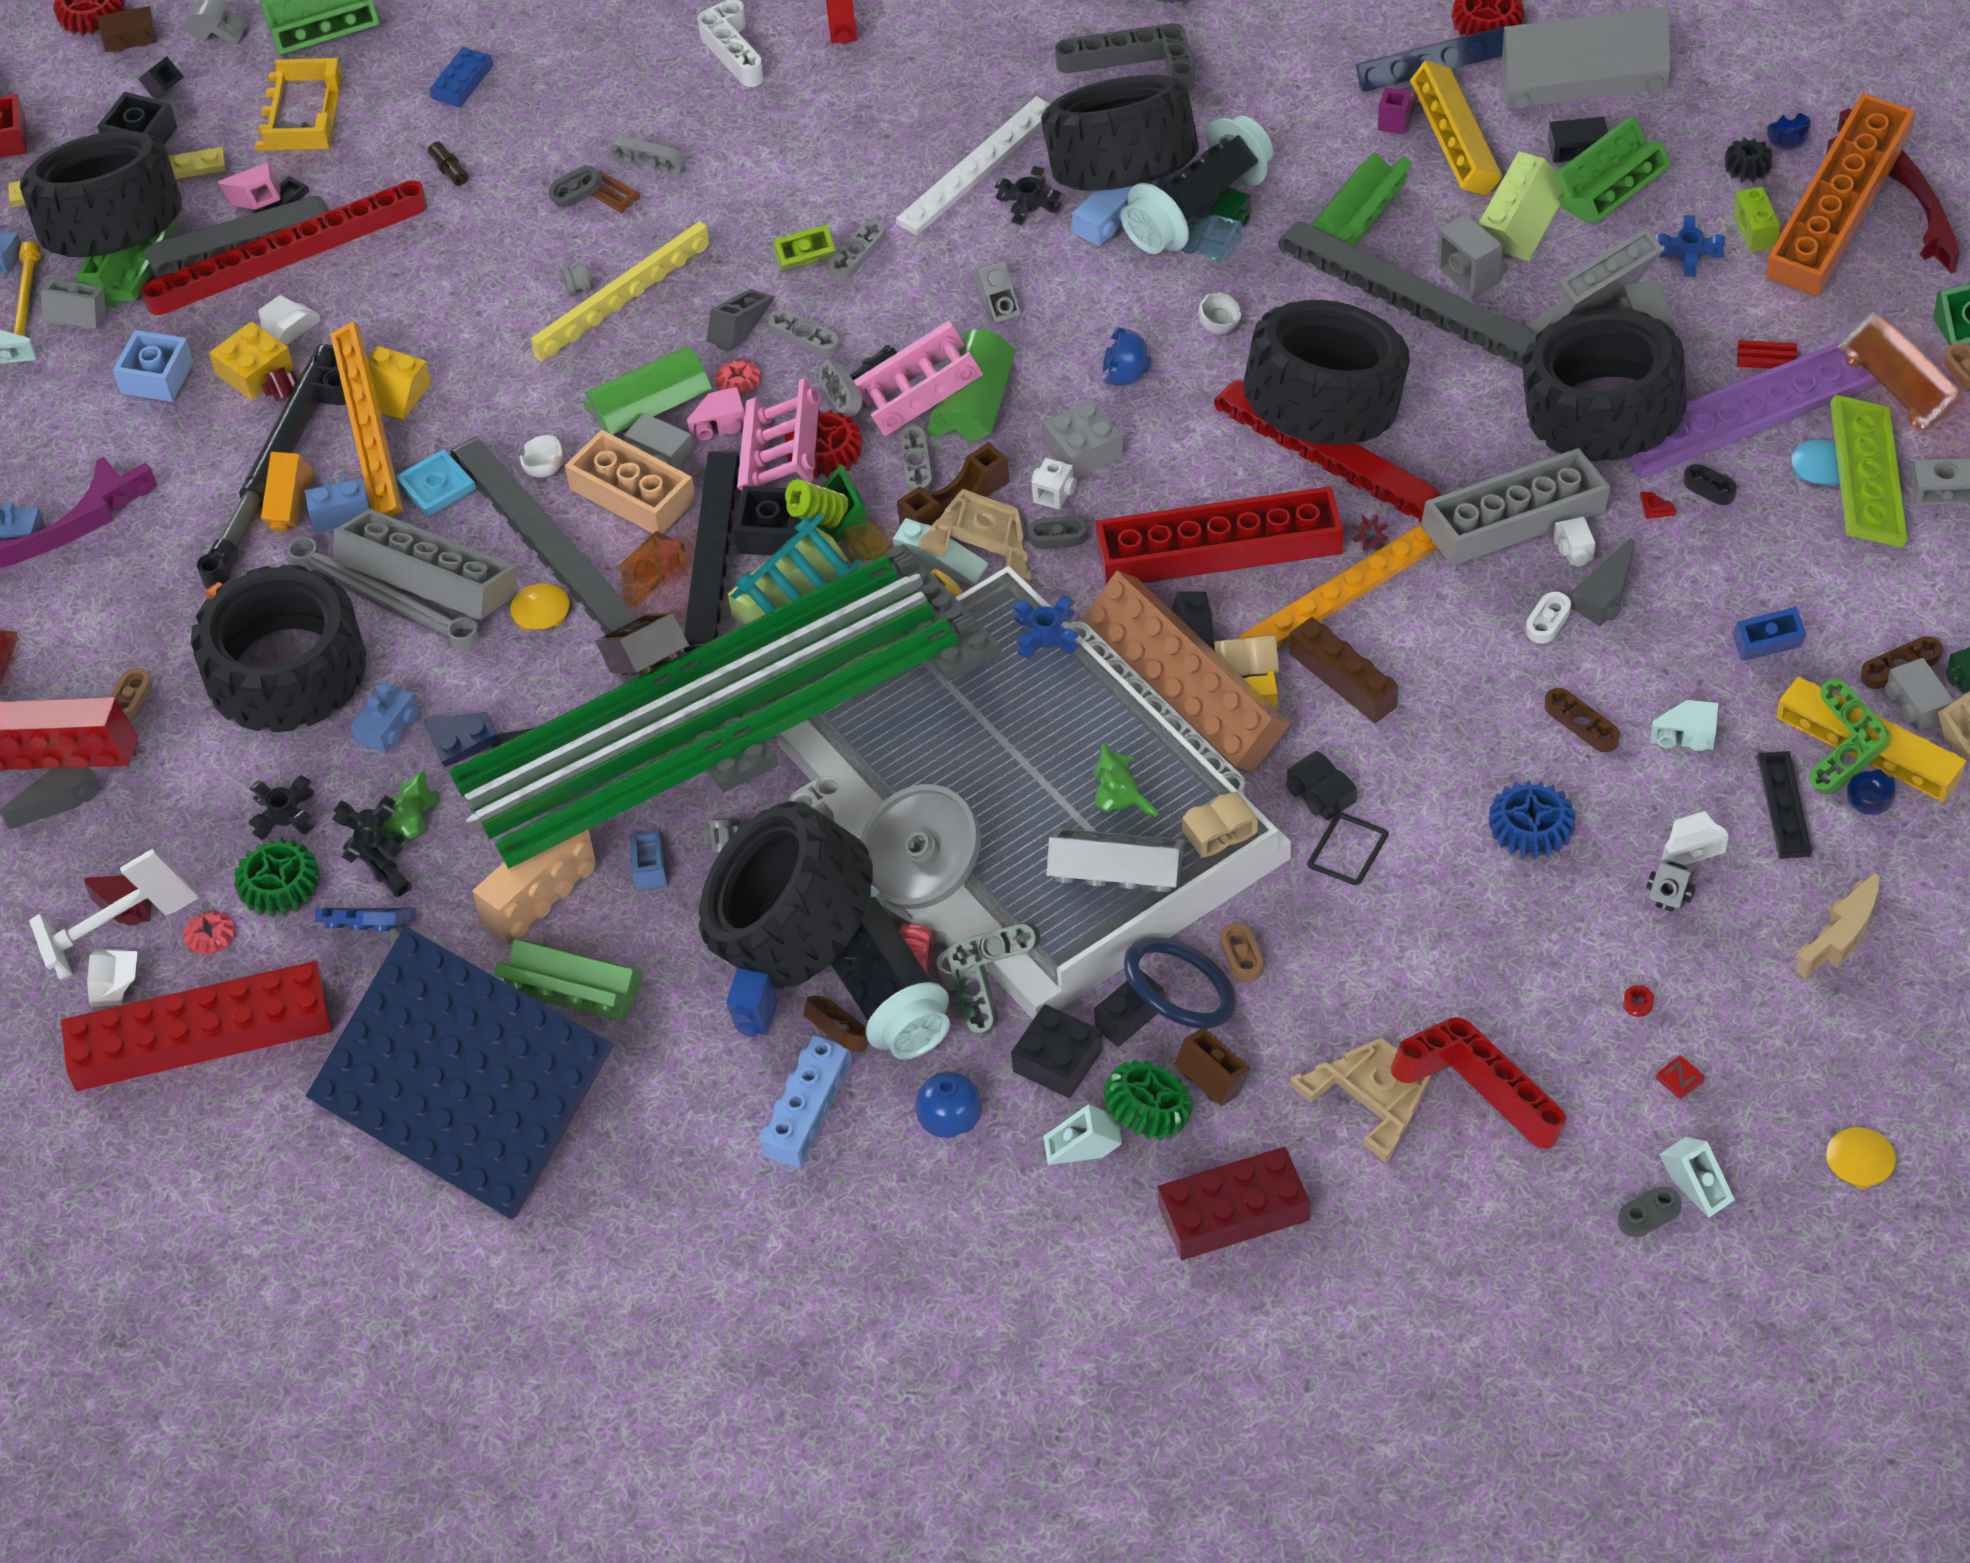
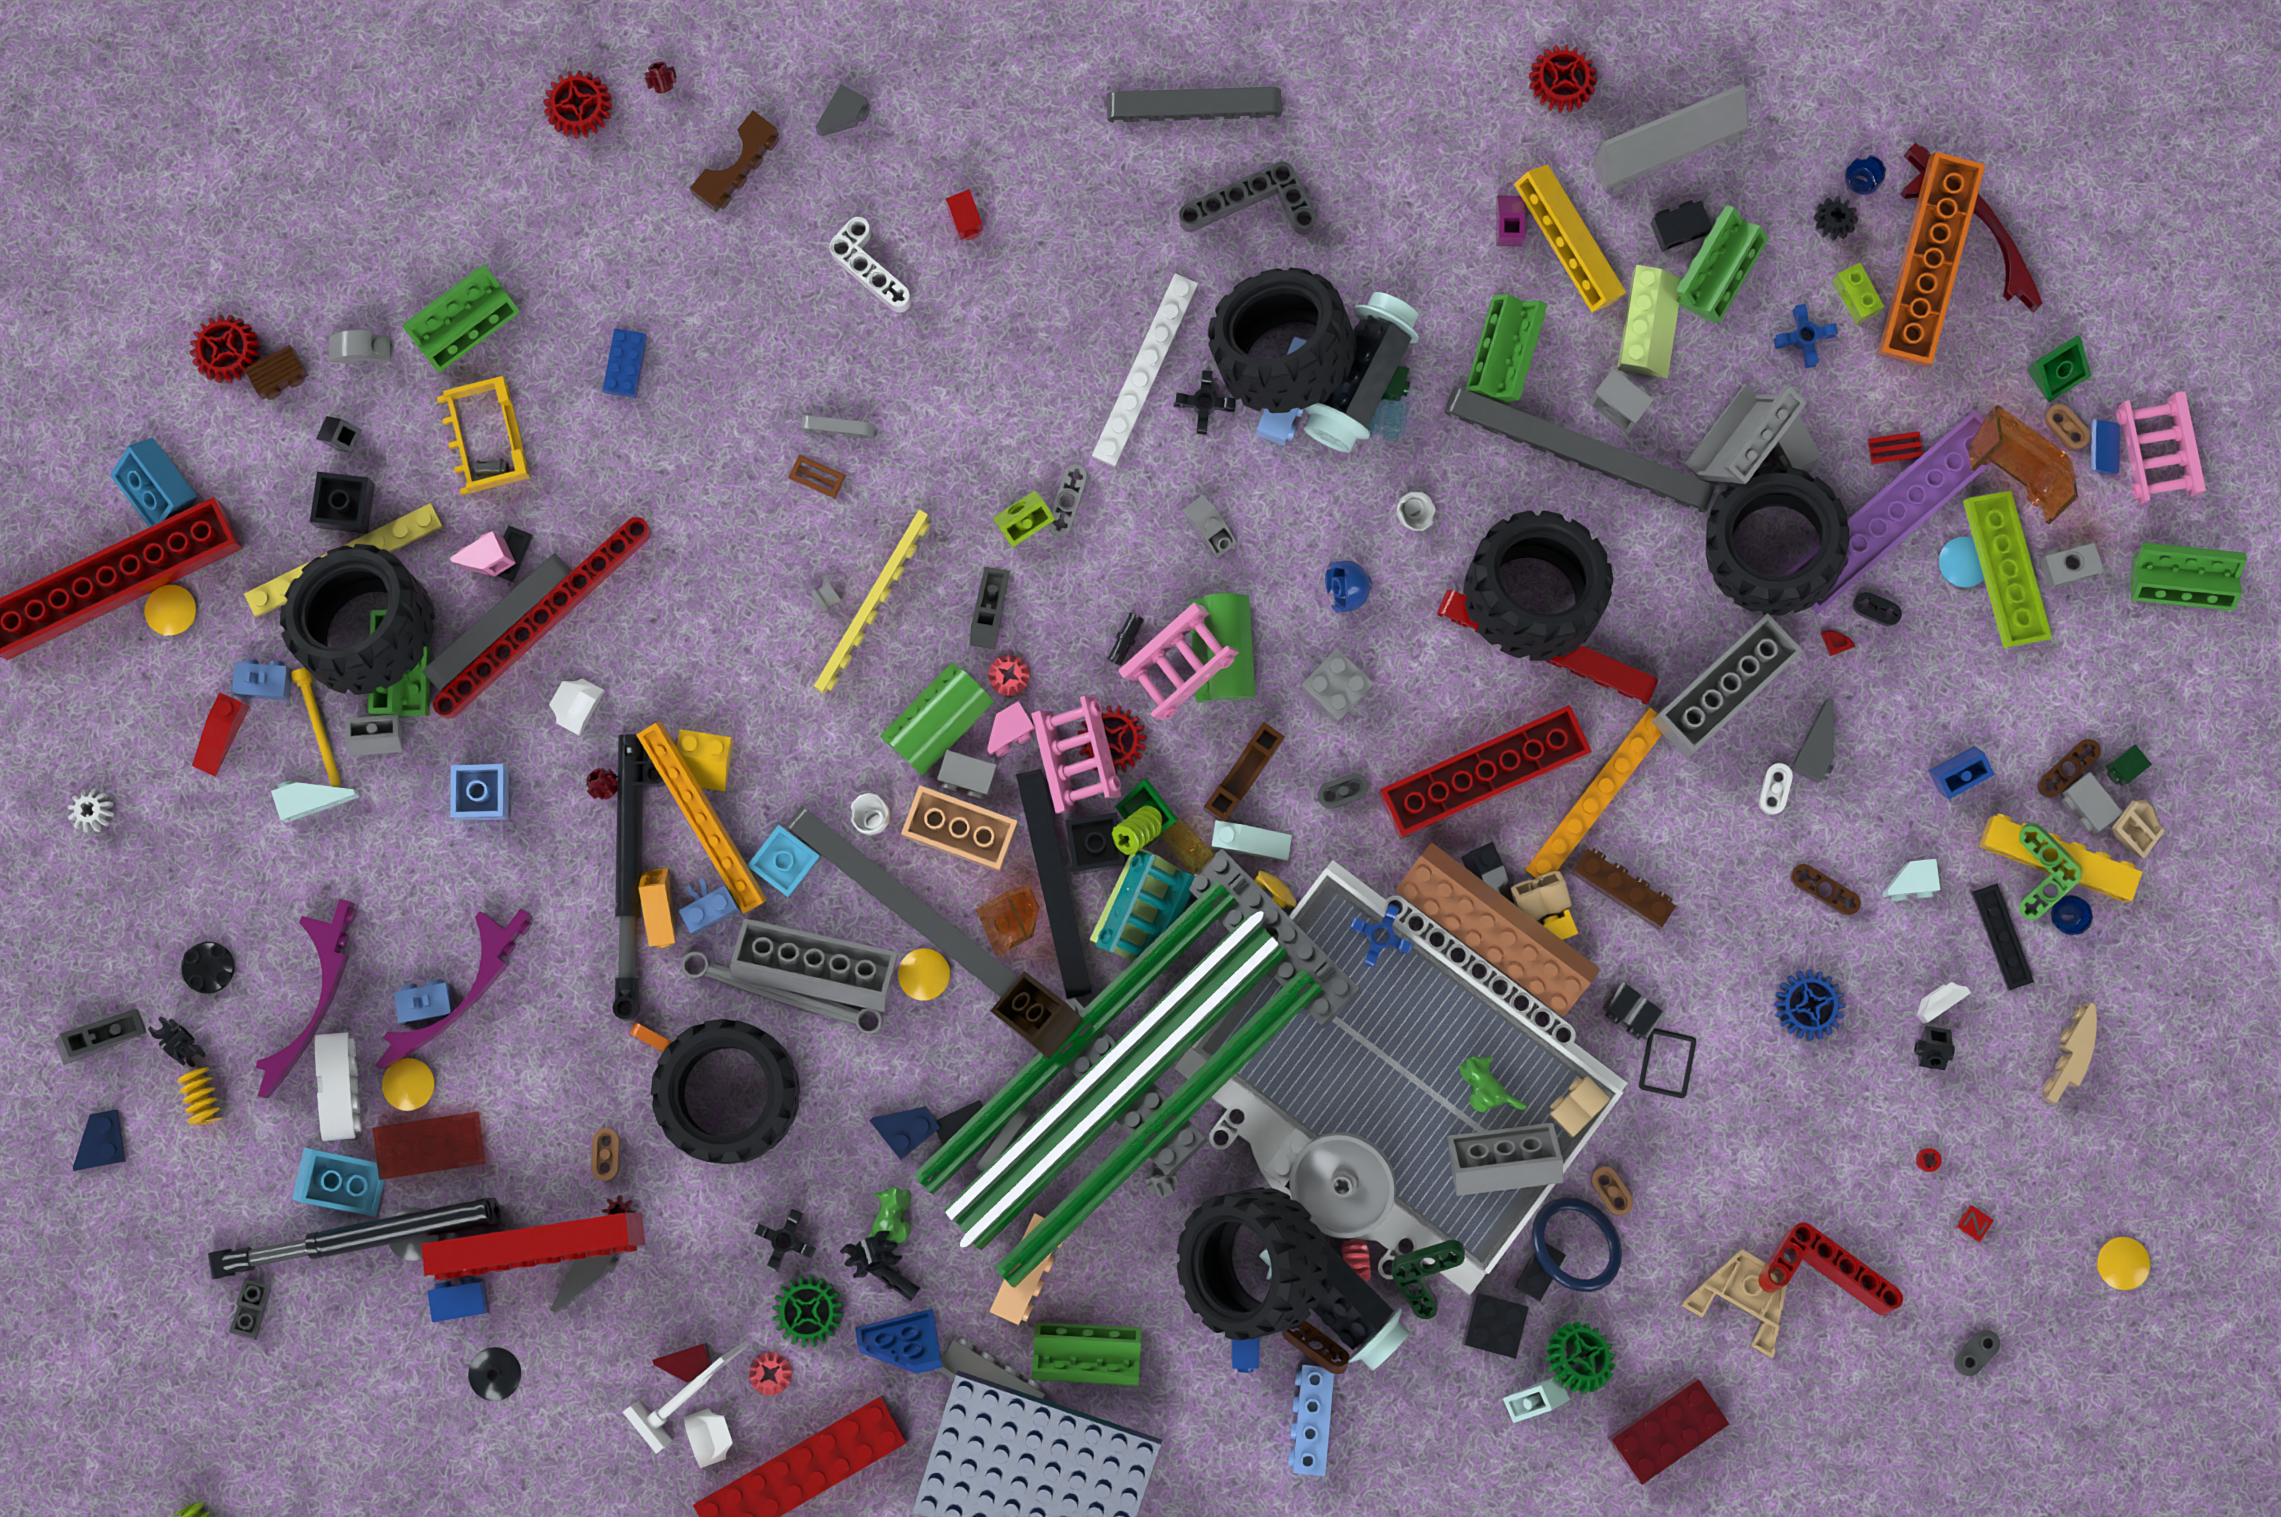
camera: 20 degrees left, 30 degrees up
(249, 356) = (565, 762): yellow brick -> none
(385, 717) = (837, 1128): medium blue brick -> none
(448, 163) = (653, 477): dark brown pin -> none
(576, 185) = (786, 483): dark grey plate -> none
(652, 875) = (1116, 1233): medium blue slope -> none
(800, 324) = (1030, 612): light grey beam -> none
(840, 388) = (1119, 688): light grey beam -> none
(909, 453) = (1209, 752): light grey beam -> none
(948, 1104) = (1422, 1392): blue cylinder -> none
(982, 524) = (1280, 803): tan wing -> none
(1053, 483) = (1325, 751): white brick -> none
(1212, 1066) = (1620, 1313): reddish brown brick -> none
(1374, 539) = (1608, 734): dark red gear -> none
(1449, 53) = (1528, 148): dark blue plate -> none
(1575, 541) = (1781, 704): white brick -> none
(1697, 1174) = (2007, 1314): light aqua slope -> none

